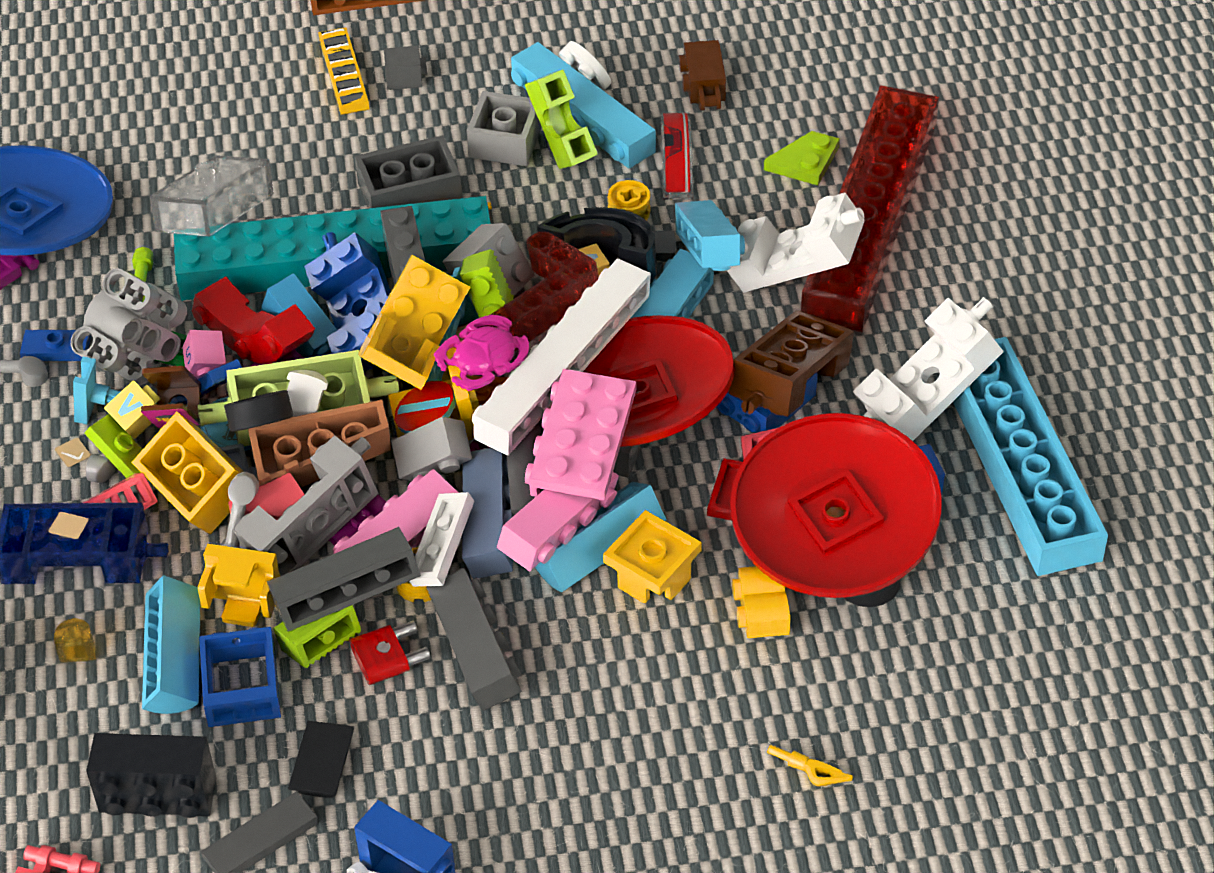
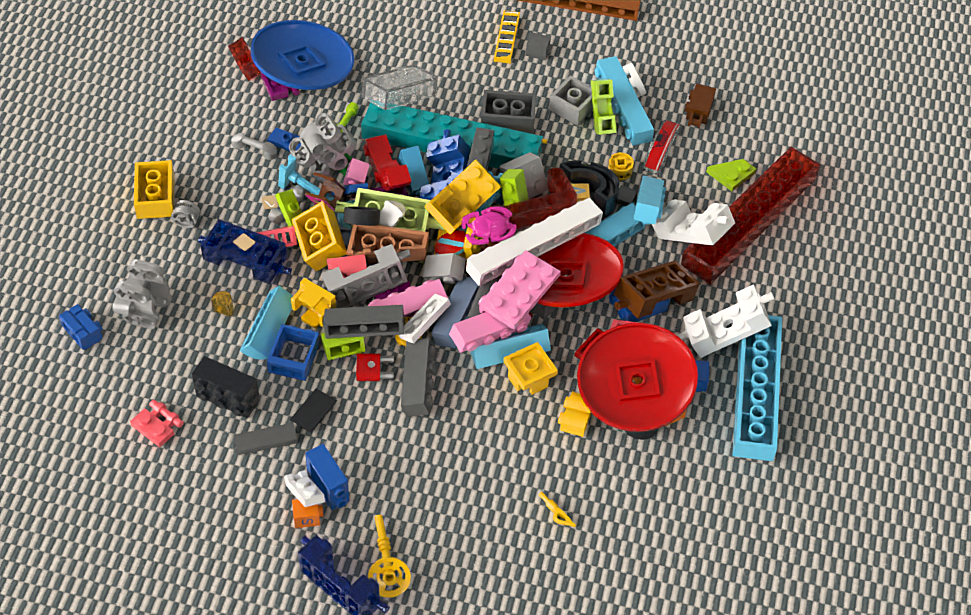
camera: 20 degrees right, 5 degrees up
(127, 408) = (303, 186): light yellow brick -> none
(241, 492) = (333, 256): light grey bar -> none

